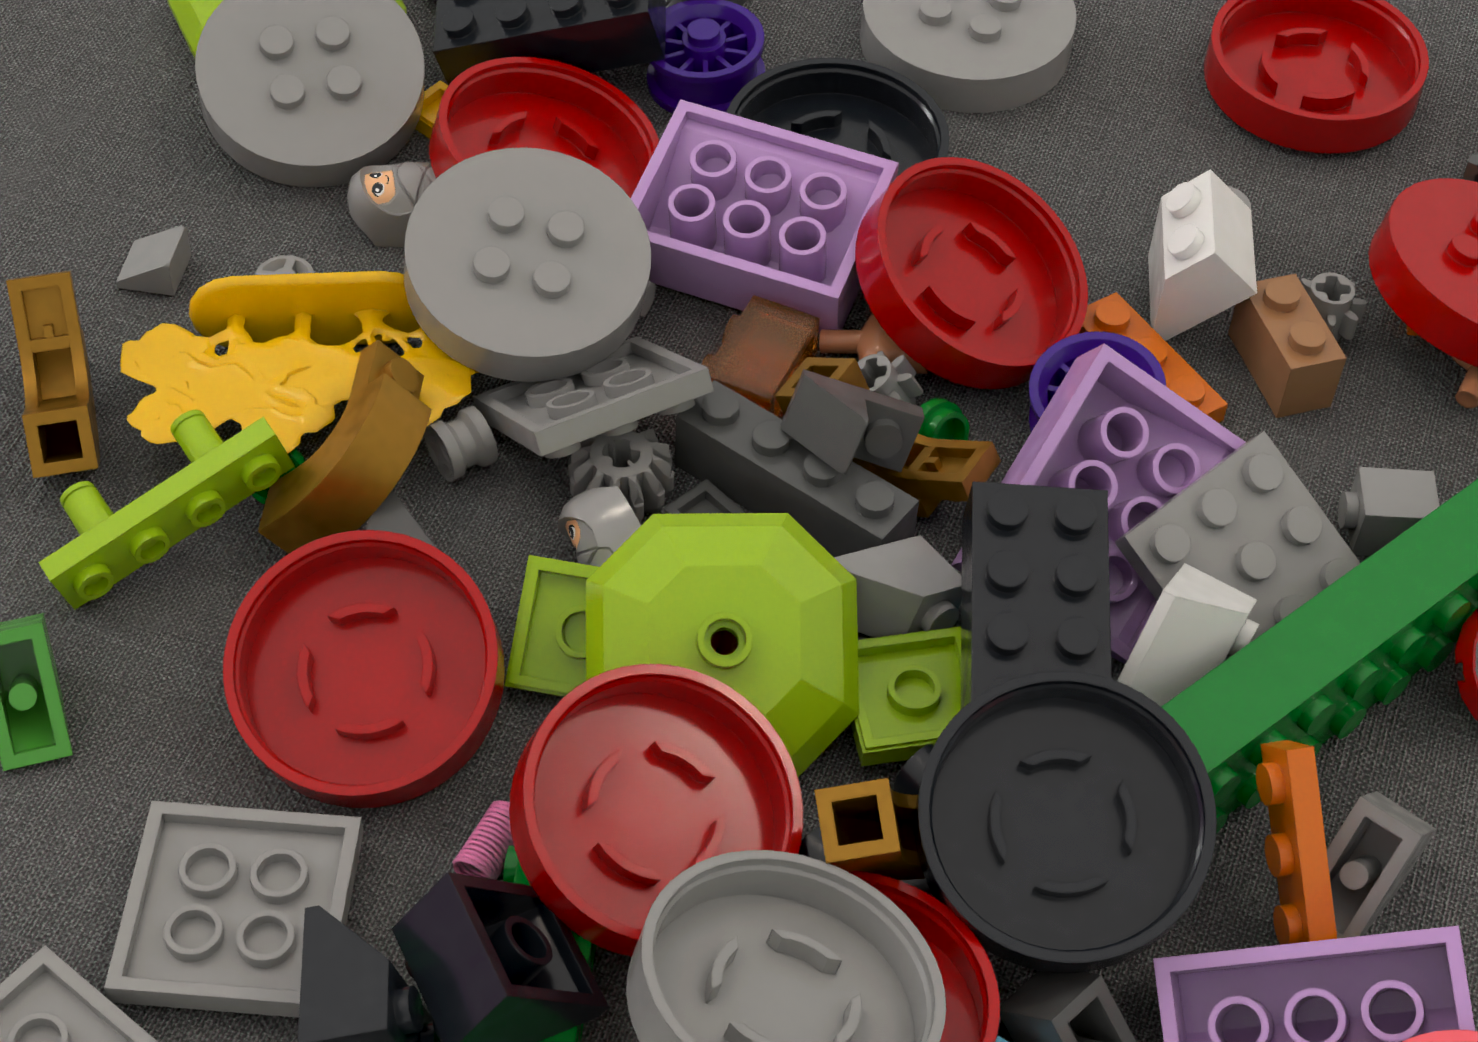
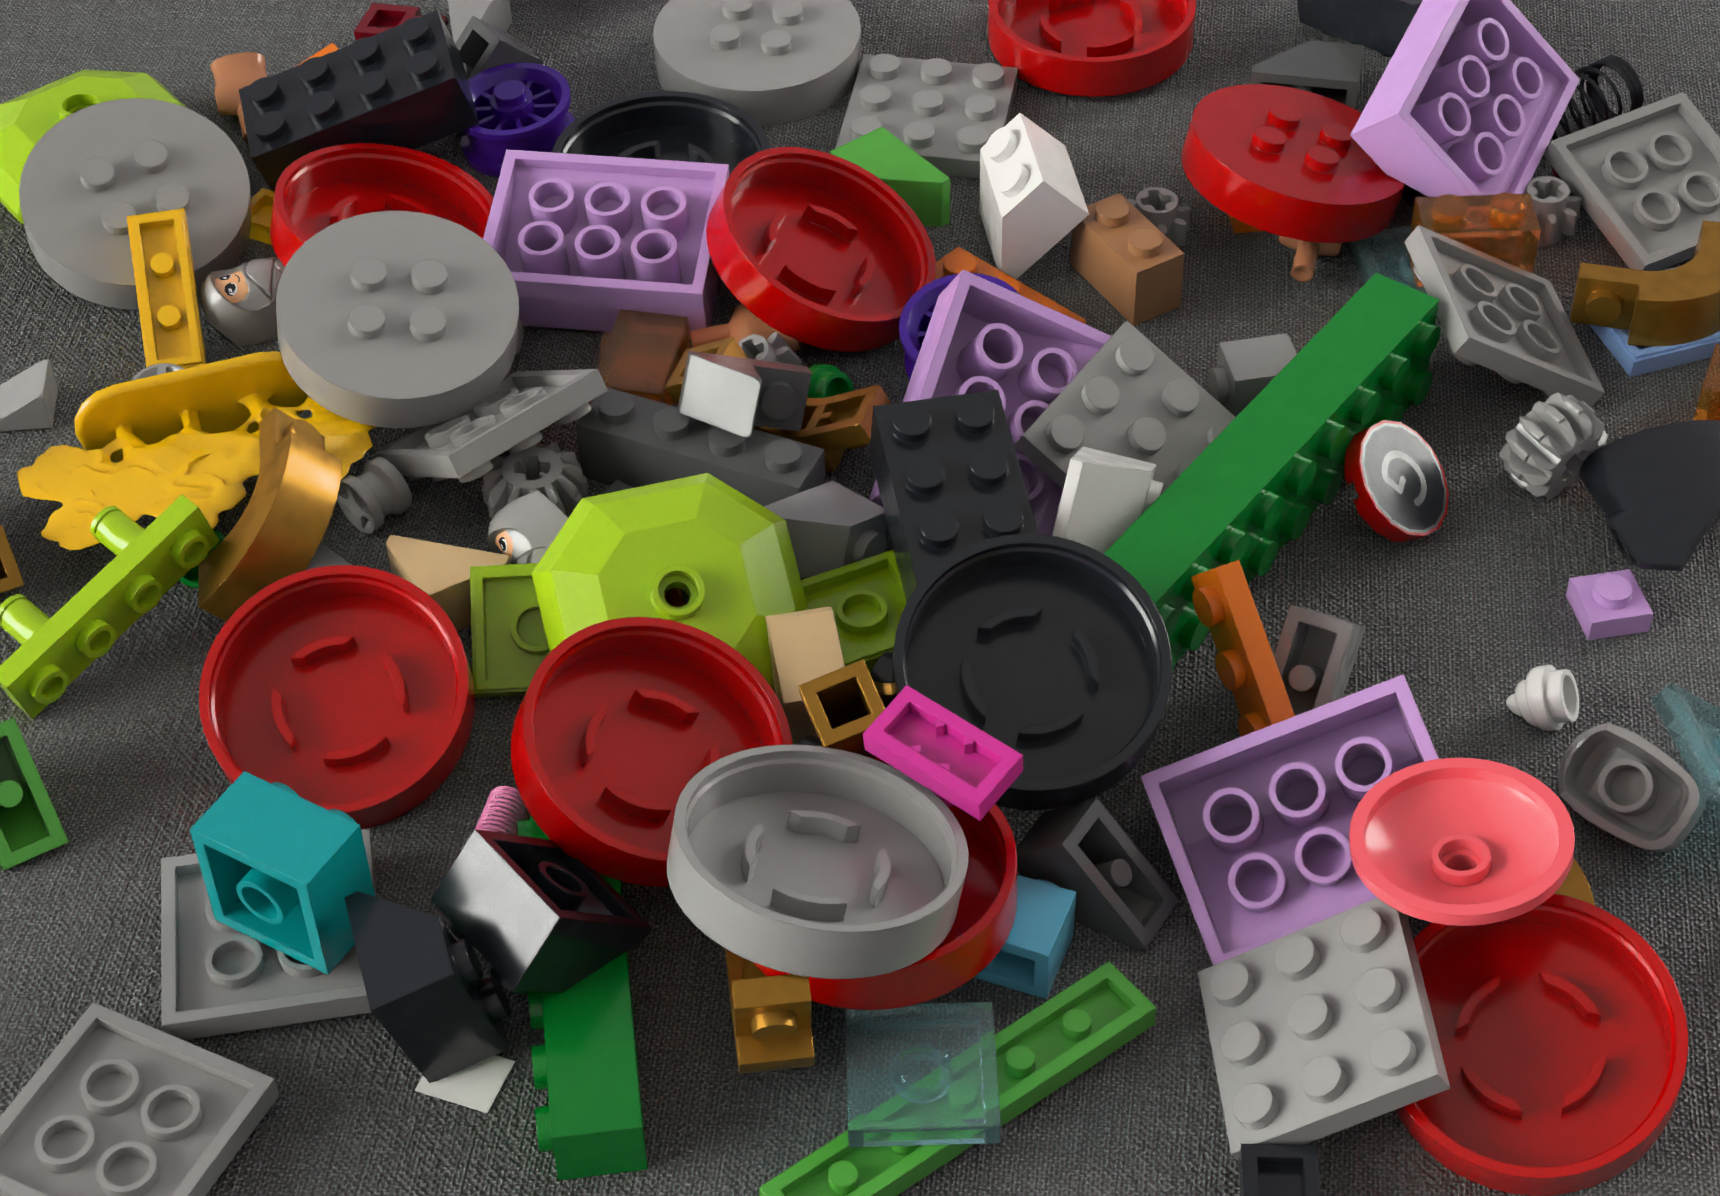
camera: 10 degrees left, 5 degrees down
(257, 856) = (282, 869): none -> teal brick
(316, 179) = (166, 288): none -> yellow tile
(498, 551) = (440, 572): none -> tan slope
(838, 739) = (801, 649): none -> tan slope
(945, 904) = (943, 752): none -> dark pink tile
(1075, 198) = (904, 171): none -> bright green slope
(1119, 135) = (932, 107): none -> light grey plate

